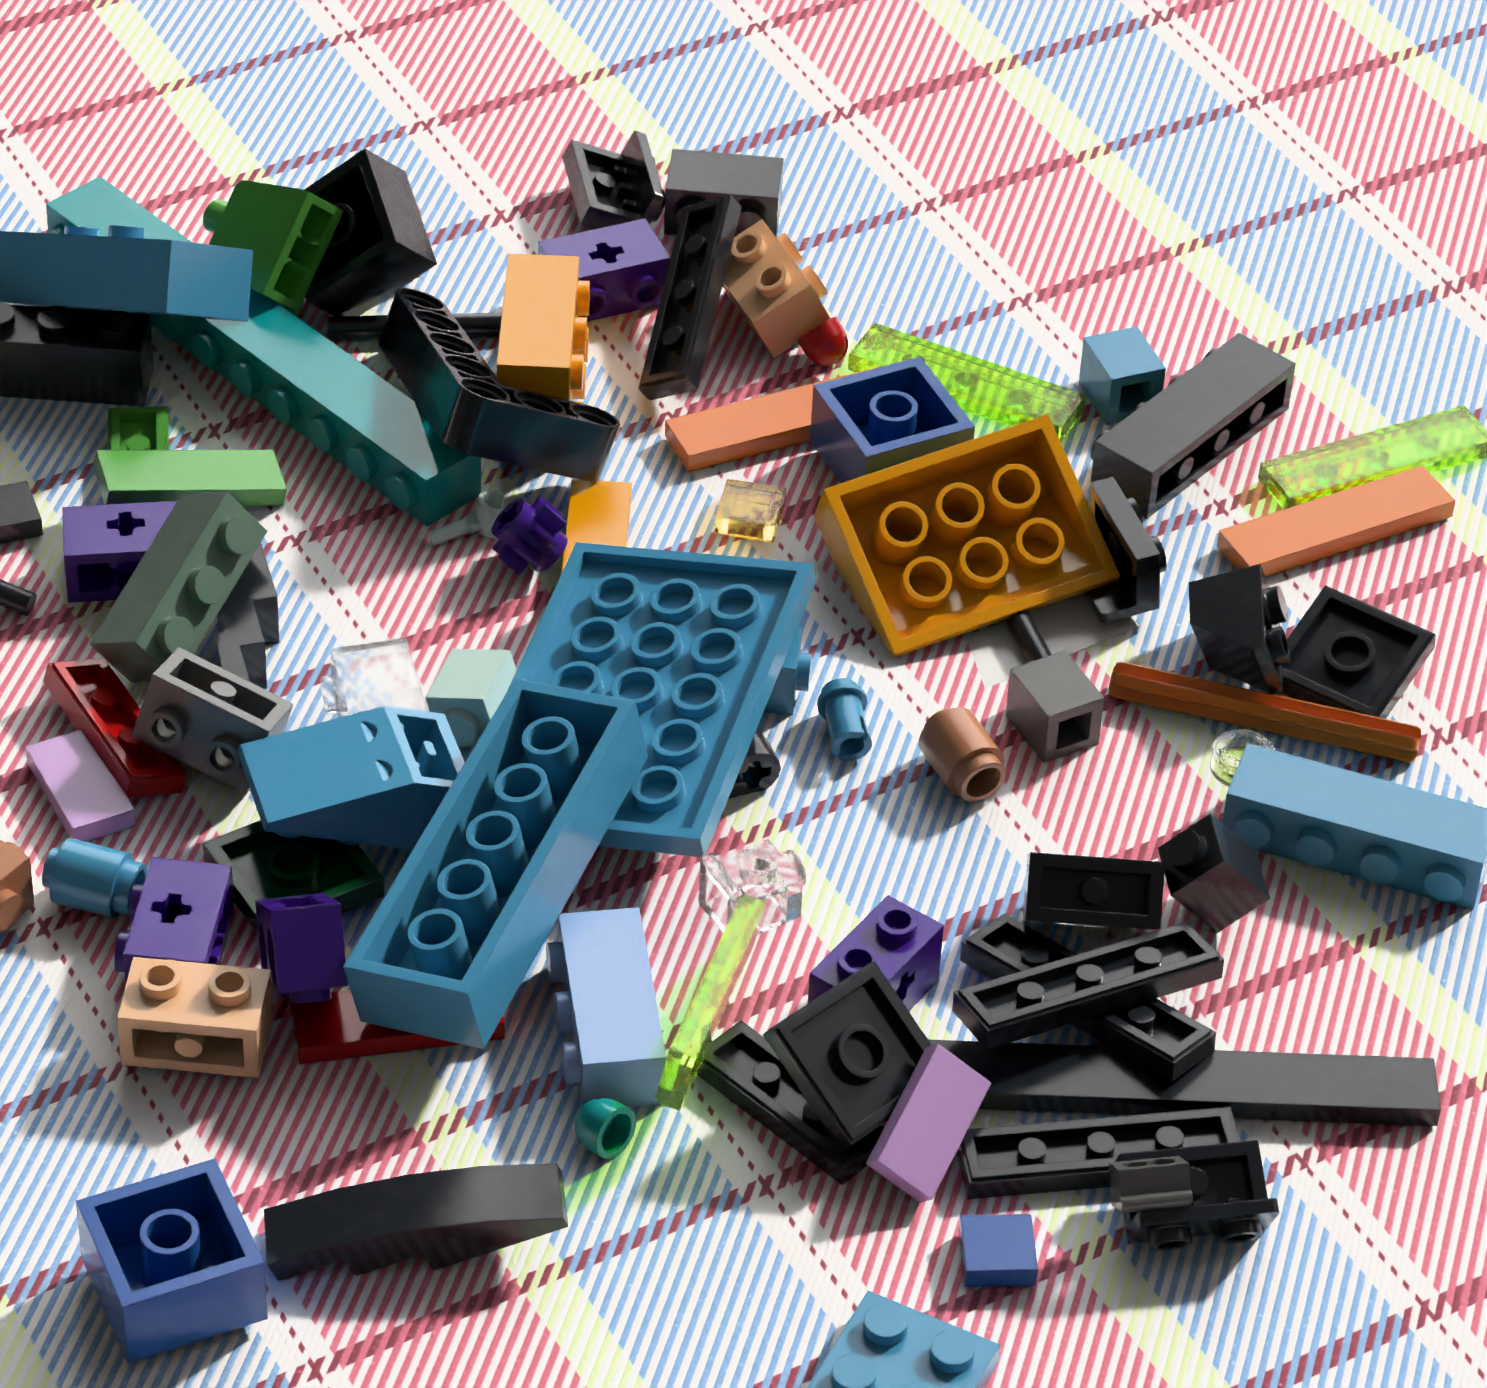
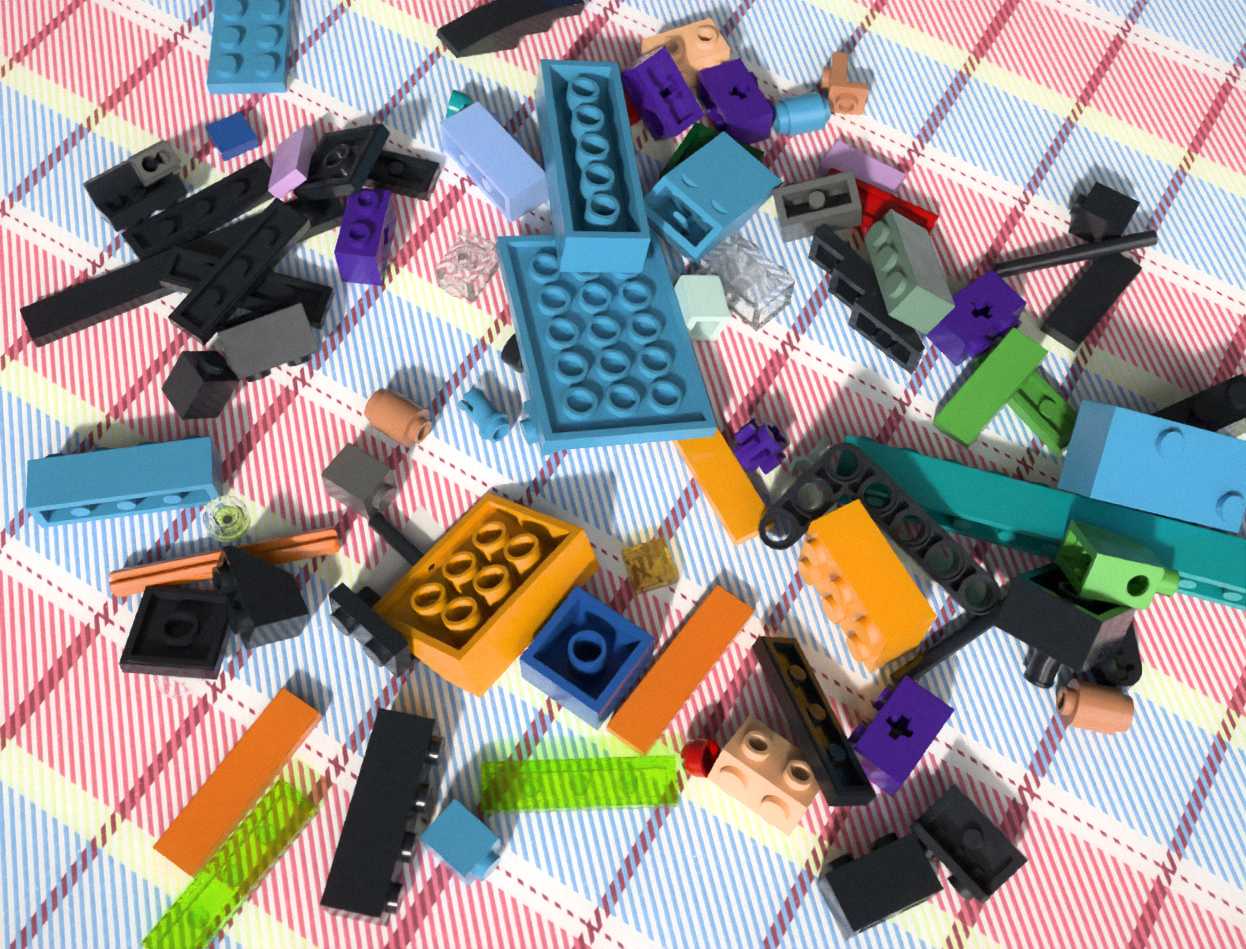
camera: 150 degrees right, 20 degrees up
(710, 1002) = (437, 166): clear neon green tile -> none

